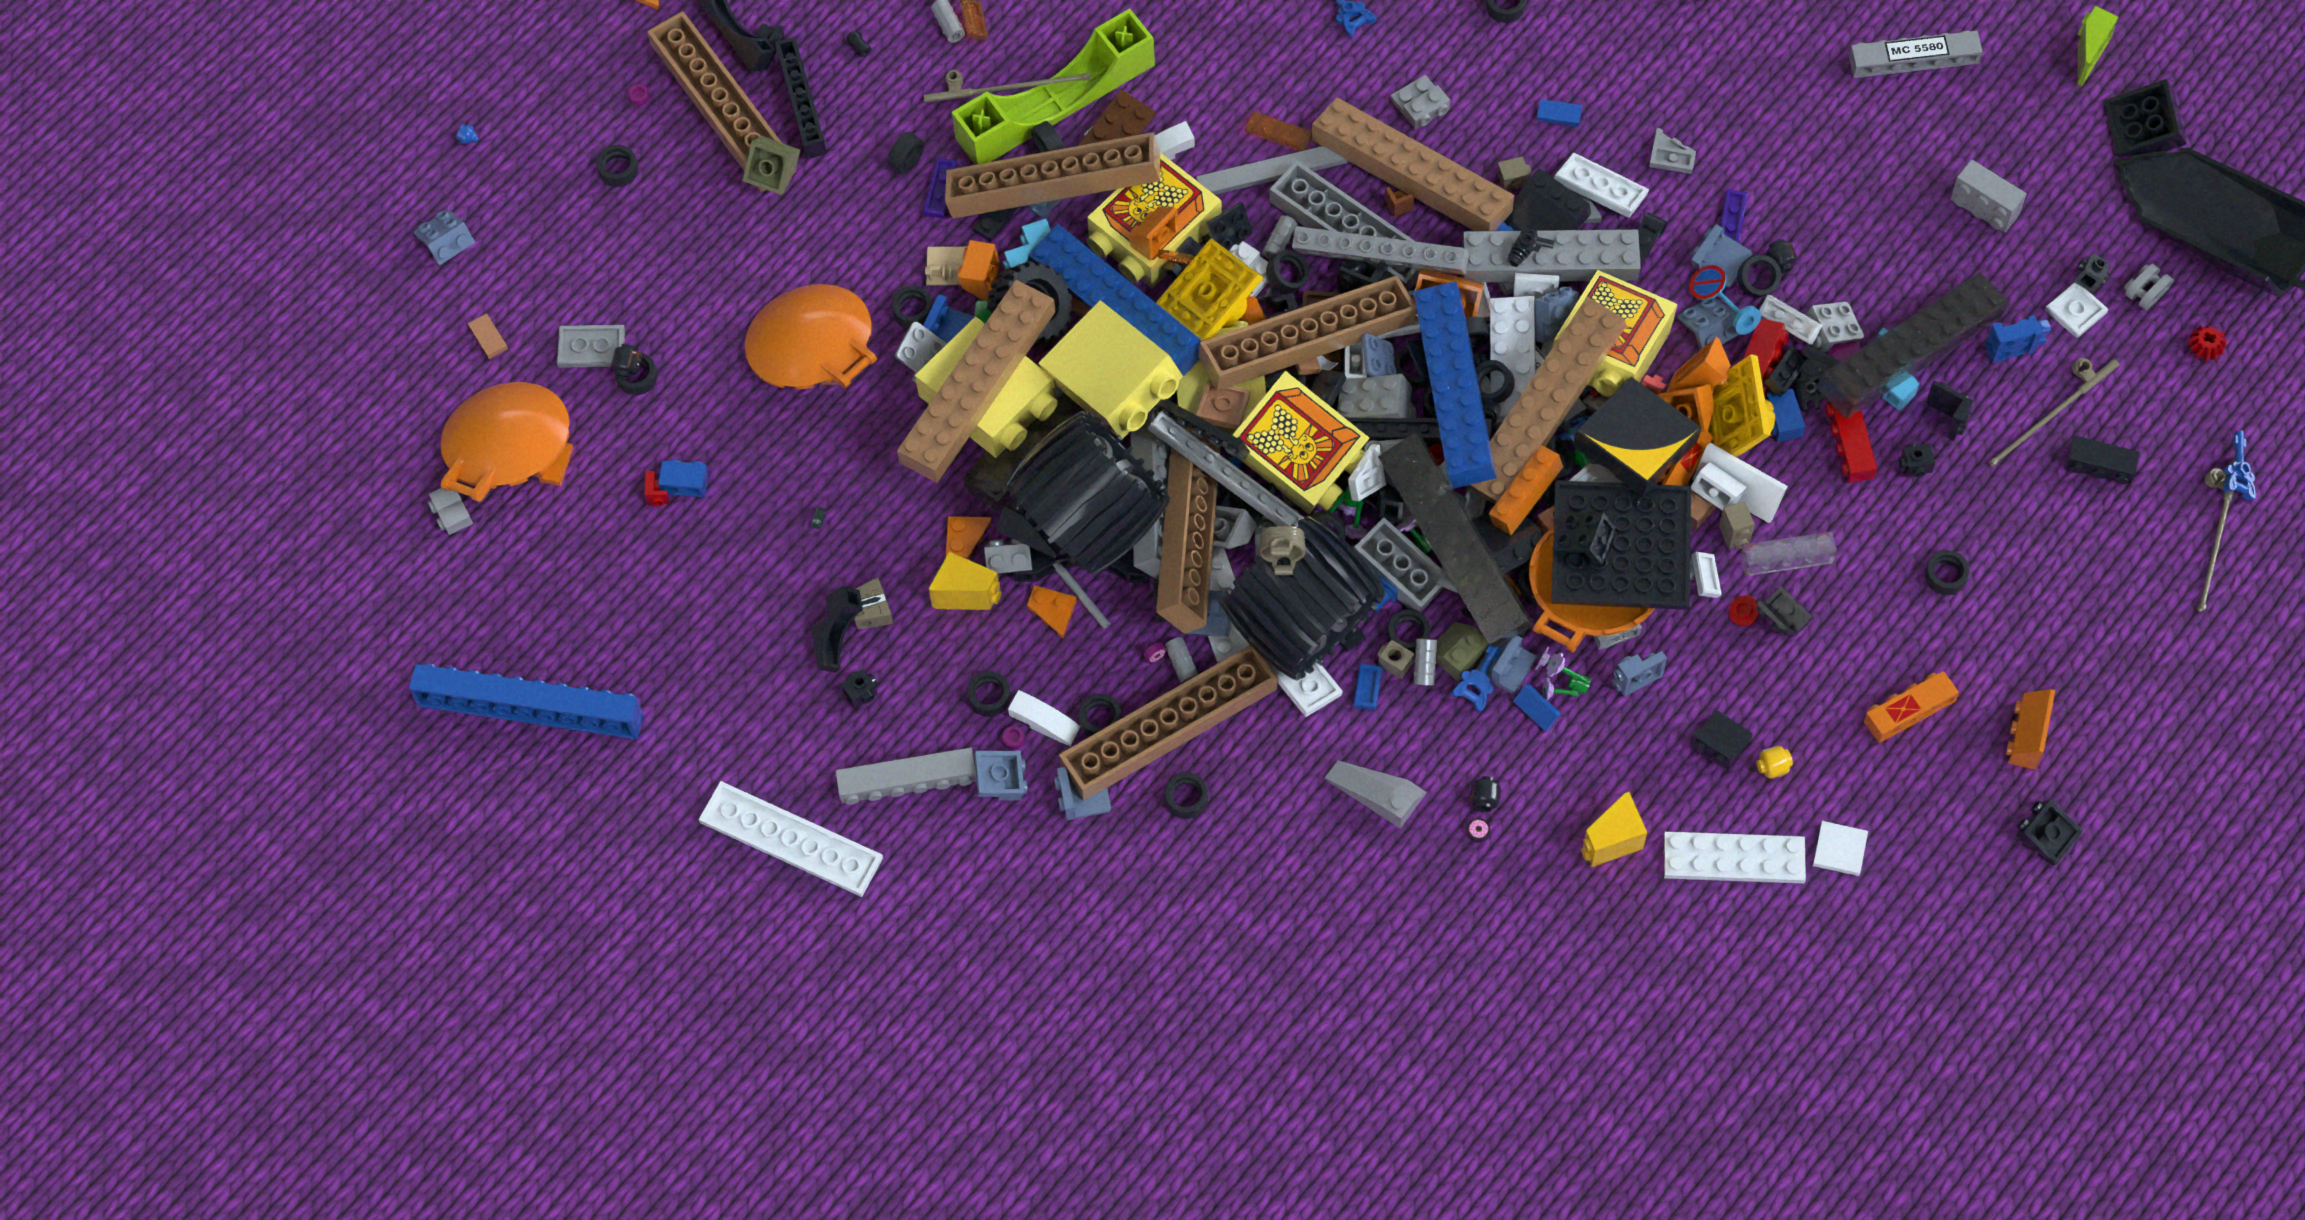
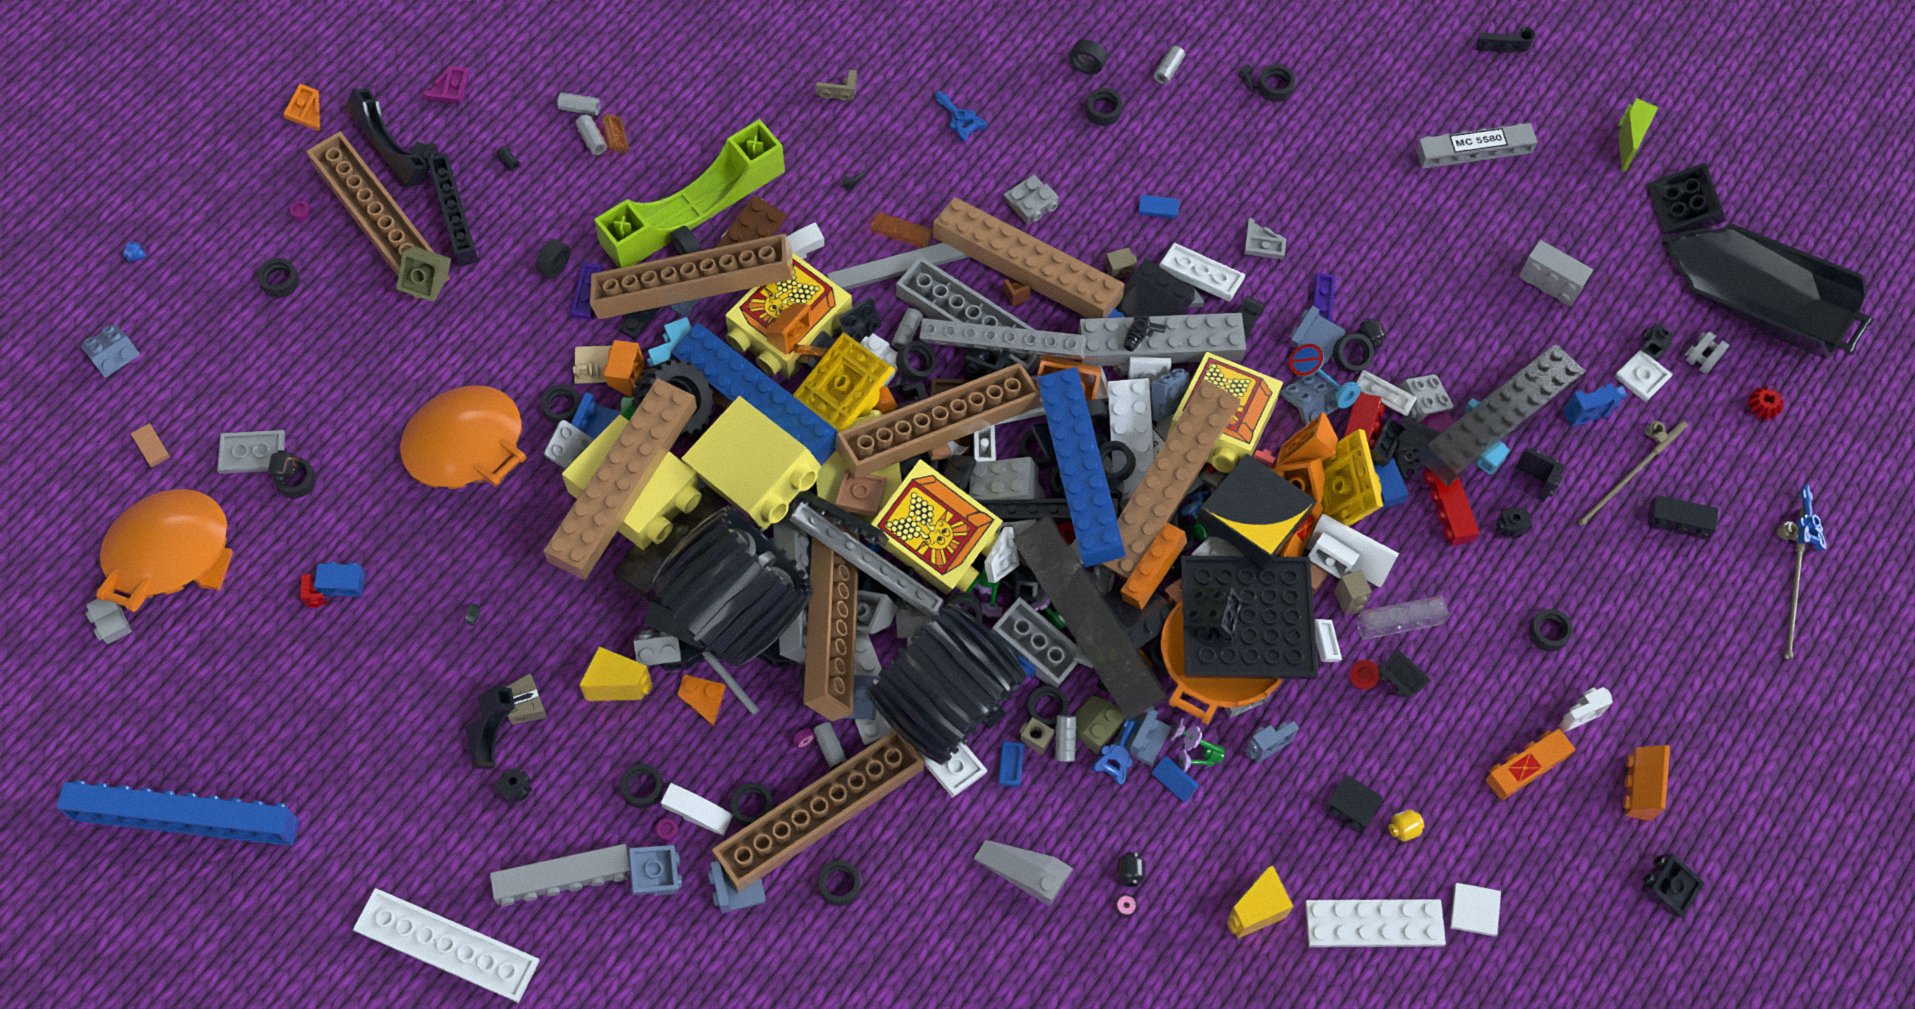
camera: 10 degrees left, 0 degrees up
(955, 81) = (599, 191): dark tan piece -> none
(965, 534) = (615, 626): orange wing -> none
(1224, 79) = (850, 183): none -> black hand
(1280, 543) = (927, 636): dark tan piece -> none
(1378, 356) = (1005, 440): sand blue bracket -> none
(1978, 653) = (1588, 708): none -> white plate

